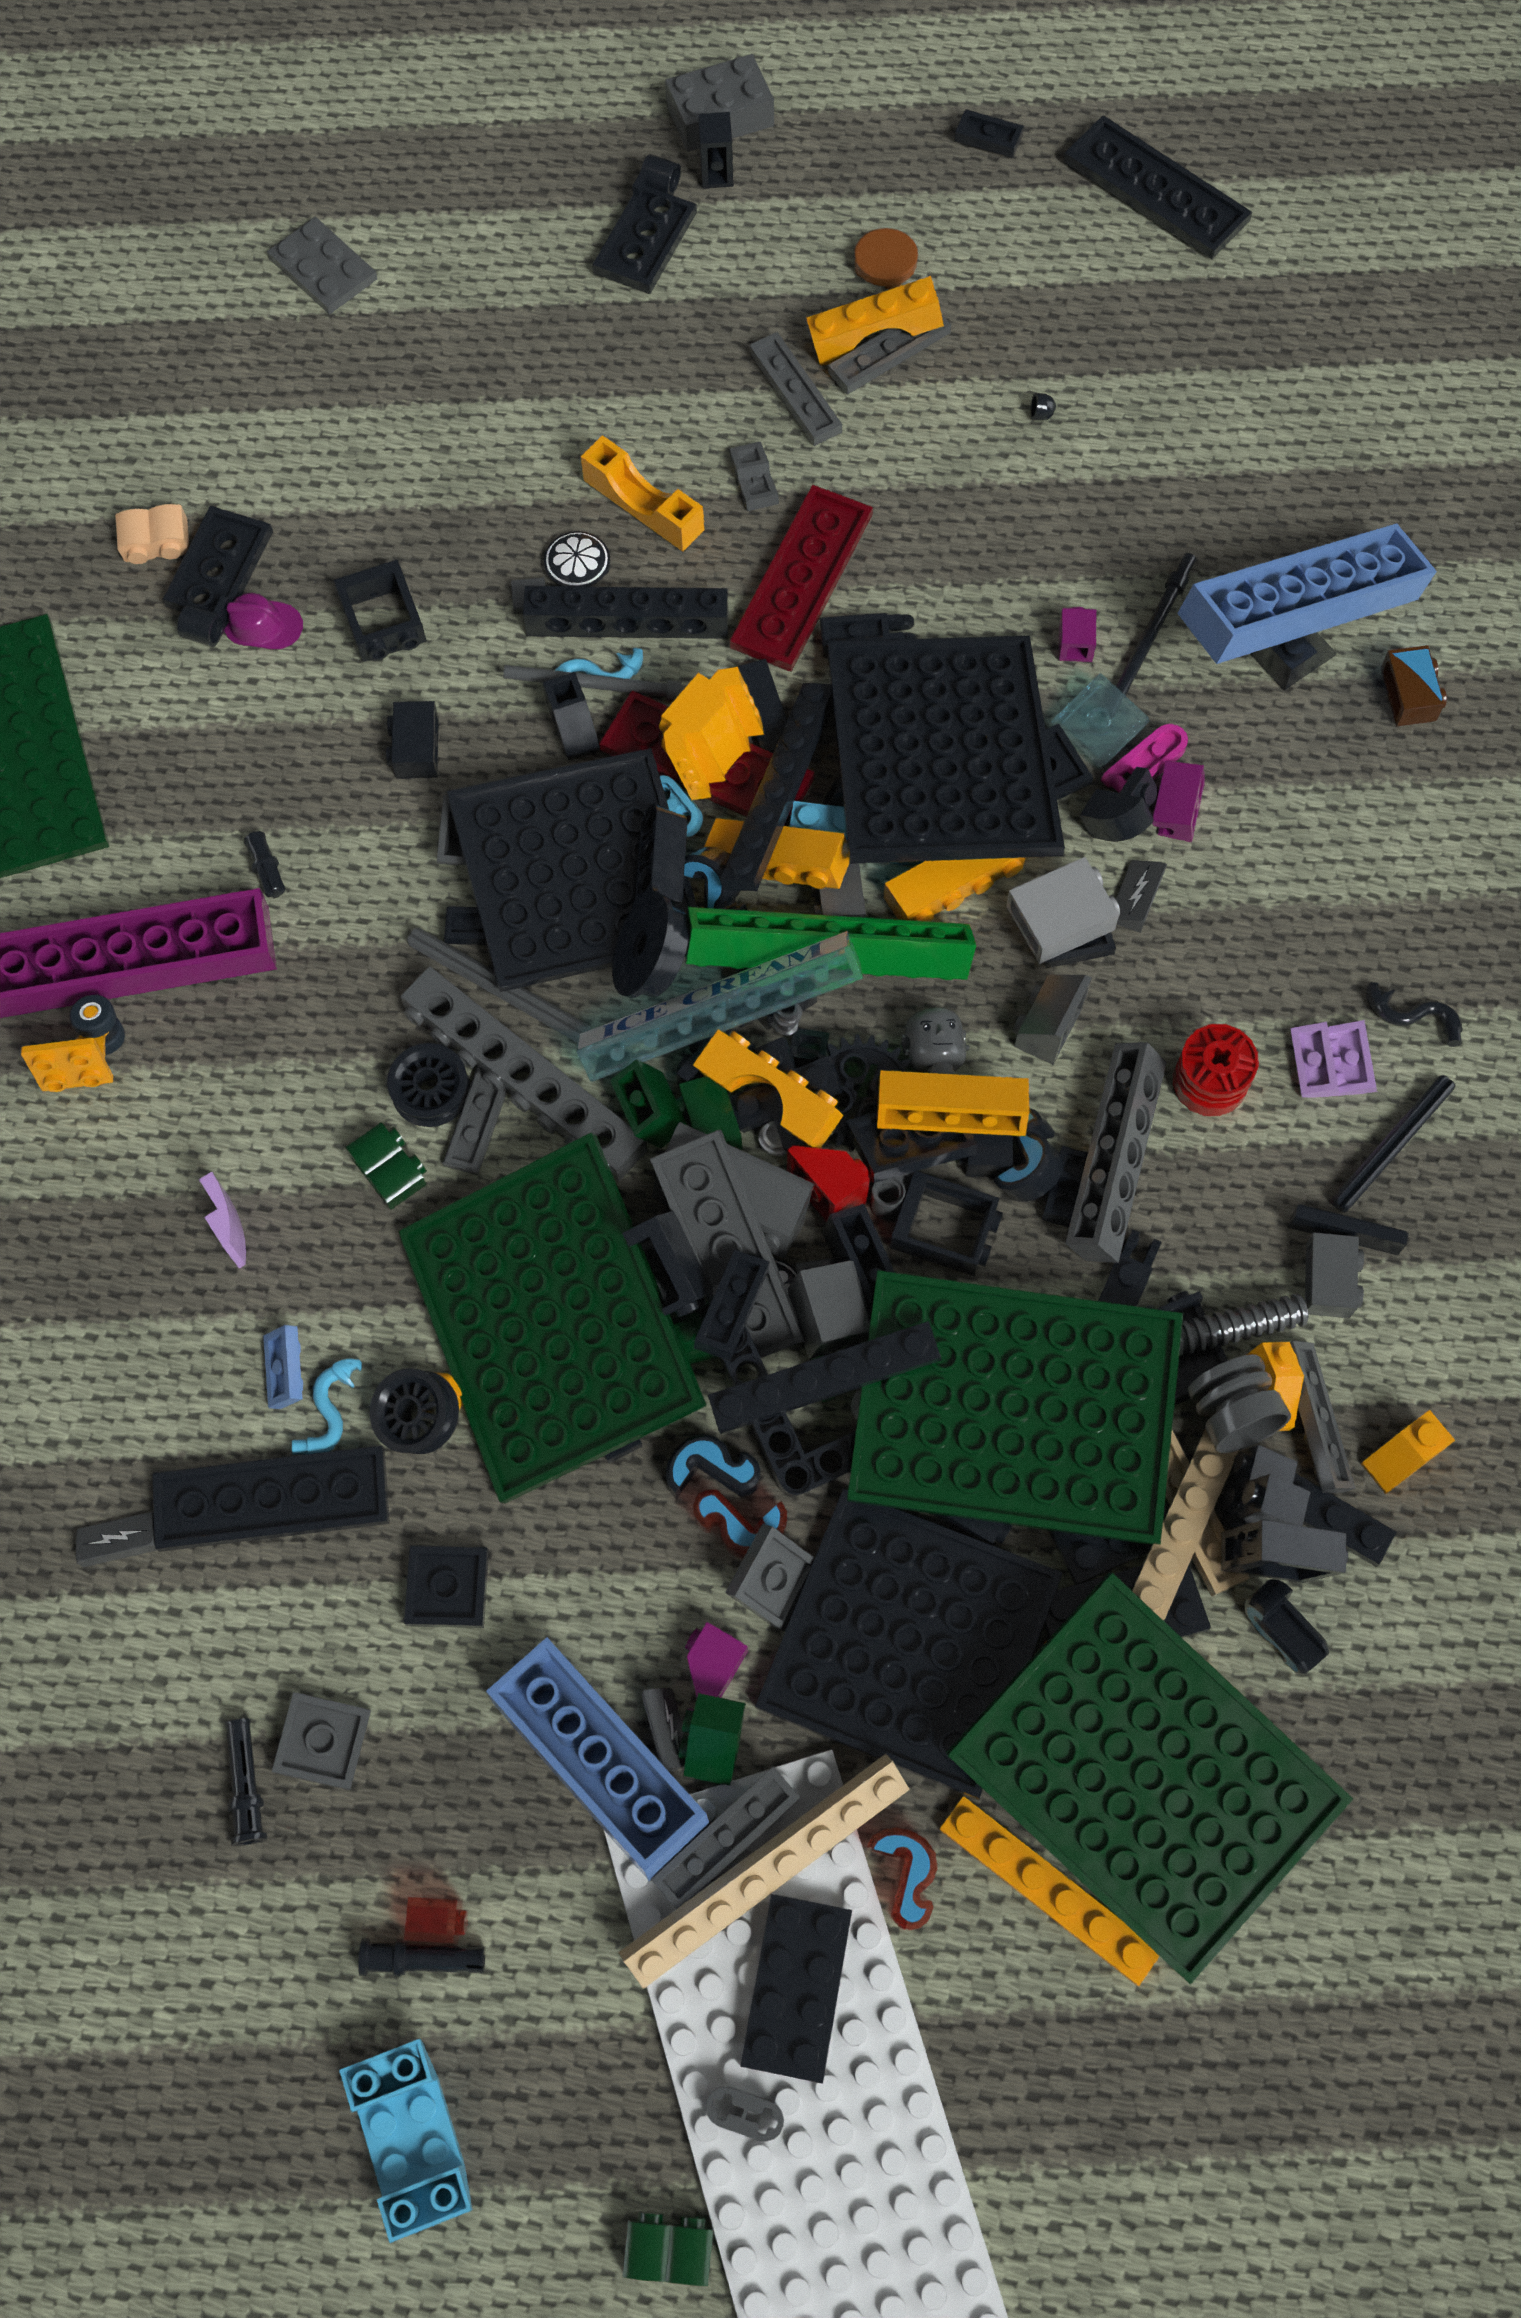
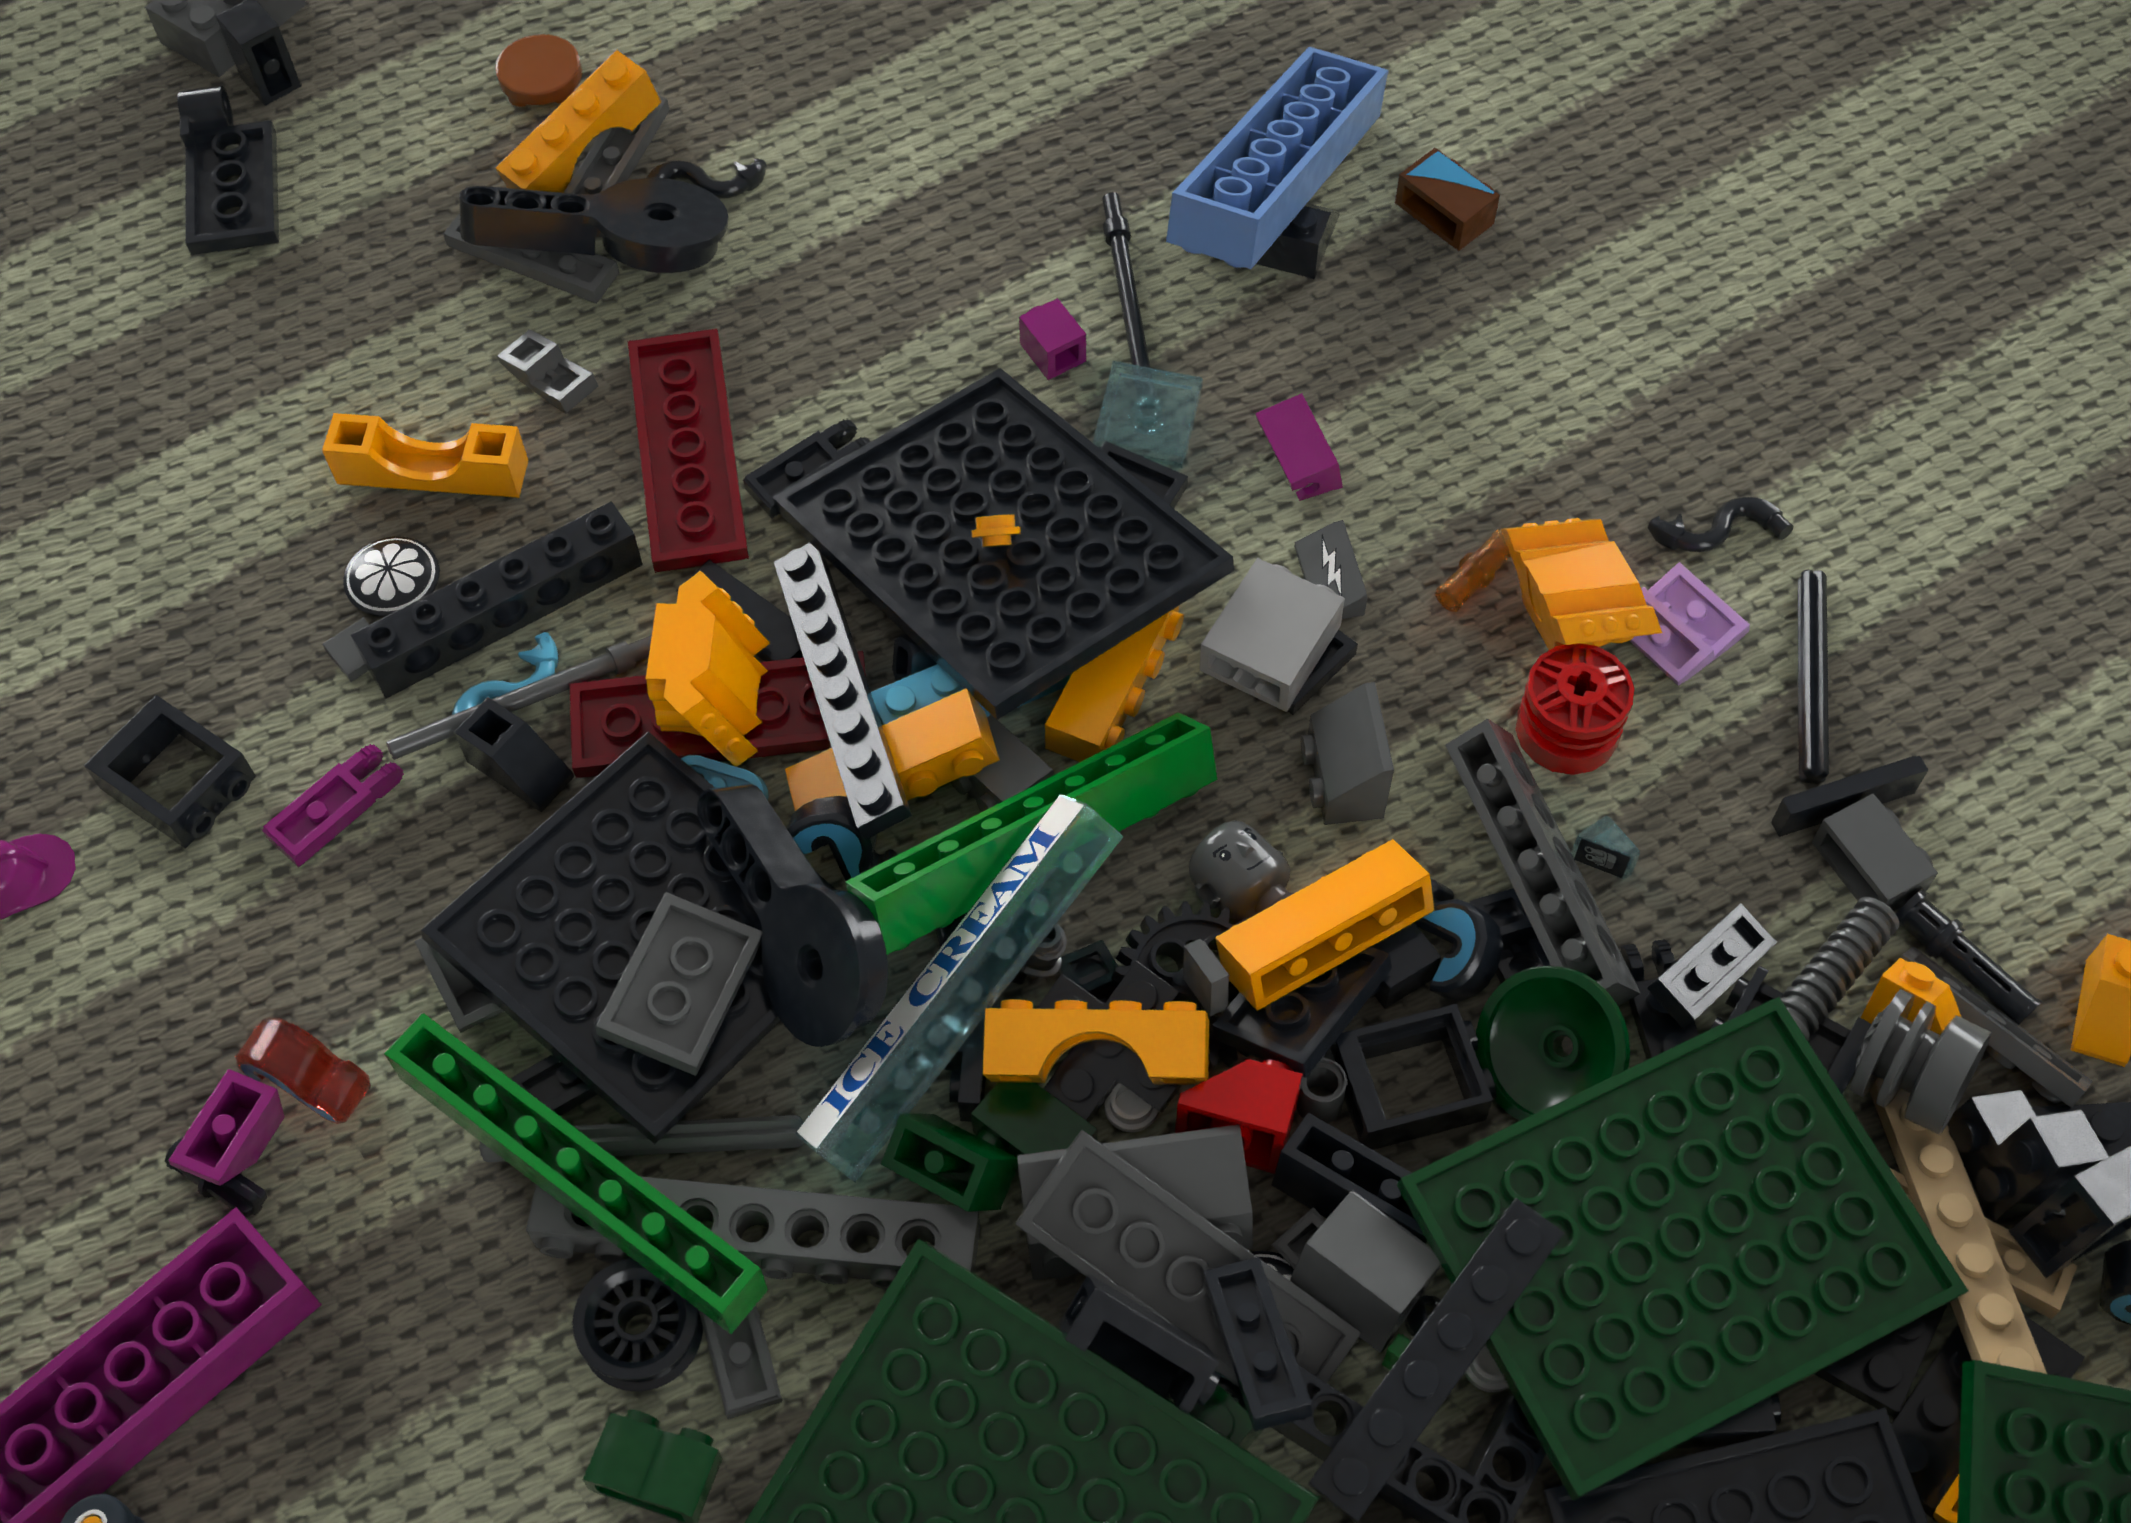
camera: 35 degrees left, 10 degrees down
(283, 843) = (230, 1129): none -> magenta slope
(344, 833) = (303, 1069): none -> clear red animal
(414, 739) = (323, 899): black brick -> none
(441, 981) = (578, 1173): none -> green brick
(458, 683) = (331, 804): none -> magenta hinge
(567, 909) = (679, 983): none -> dark grey plate
(860, 1090) = (1206, 977): none -> dark grey tile
(876, 407) = (642, 222): none -> black beam
(934, 743) = (995, 530): none -> light orange plate
(965, 411) = (746, 177): none -> black animal
(1036, 1251) = (1524, 1034): none -> dark green dish
(1042, 406) = (830, 131): black hinge -> none
(1122, 814) = (1251, 497): black brick -> none
(1162, 745) = (1230, 428): dark pink plate -> none
(1168, 1165) = (1606, 848): none -> slope
(1173, 1273) = (1711, 965): none -> plate
(1230, 947) = (1474, 572): none -> clear orange pin
(1278, 993) = (1578, 584): none -> light orange slope
(1340, 1349) = (1946, 940): none -> black pin

